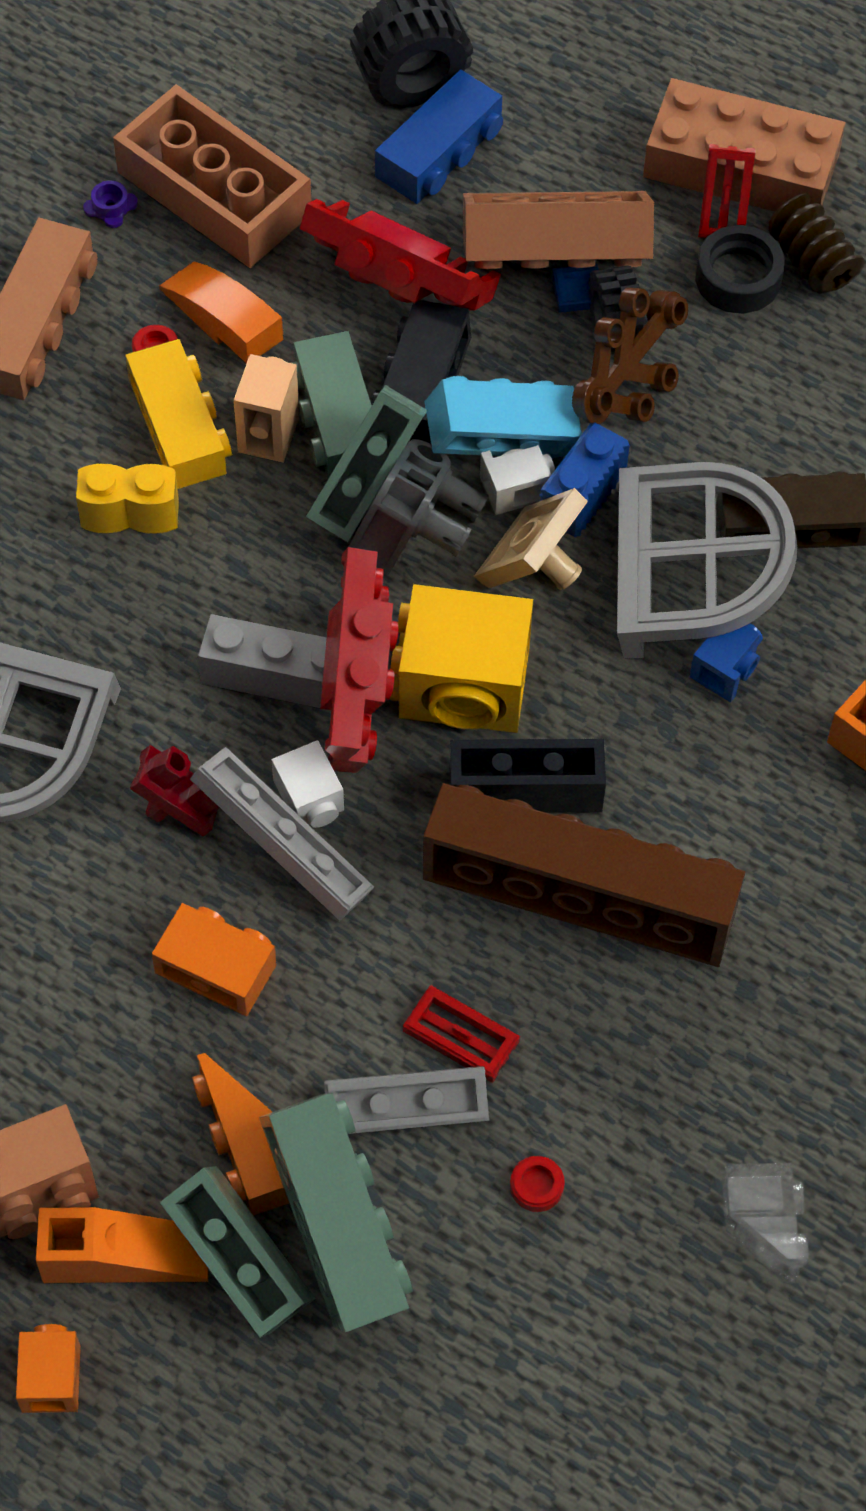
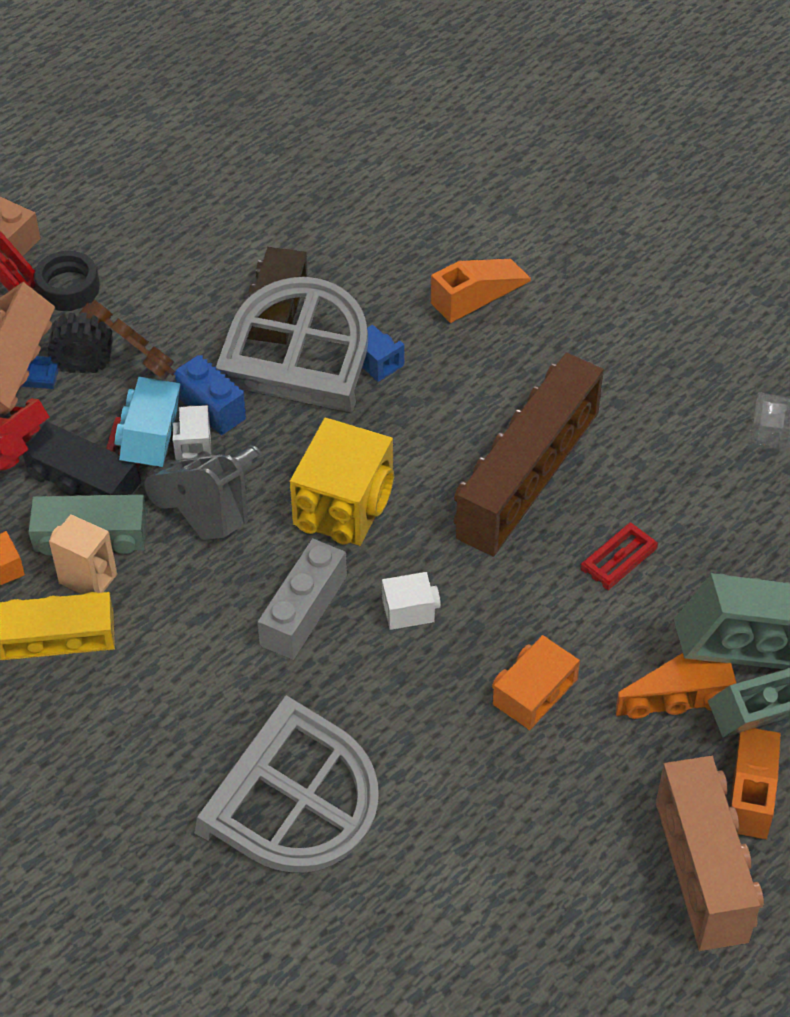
camera: 75 degrees left, 10 degrees down
(132, 498) = (122, 668): yellow brick -> none
(167, 786) = (394, 676): dark red hips -> none
(282, 833) = (448, 617): light grey tile -> none
(357, 660) = (335, 527): red bracket -> none
(366, 463) = (165, 498): sand green brick -> none
(414, 1098) = (665, 592): light grey tile -> none
(533, 543) = (256, 421): tan tile -> none
(537, 1183) = (736, 536): red tile -> none
(541, 772) = (441, 471): black brick -> none
(815, 244) = (71, 234): dark brown piece -> none

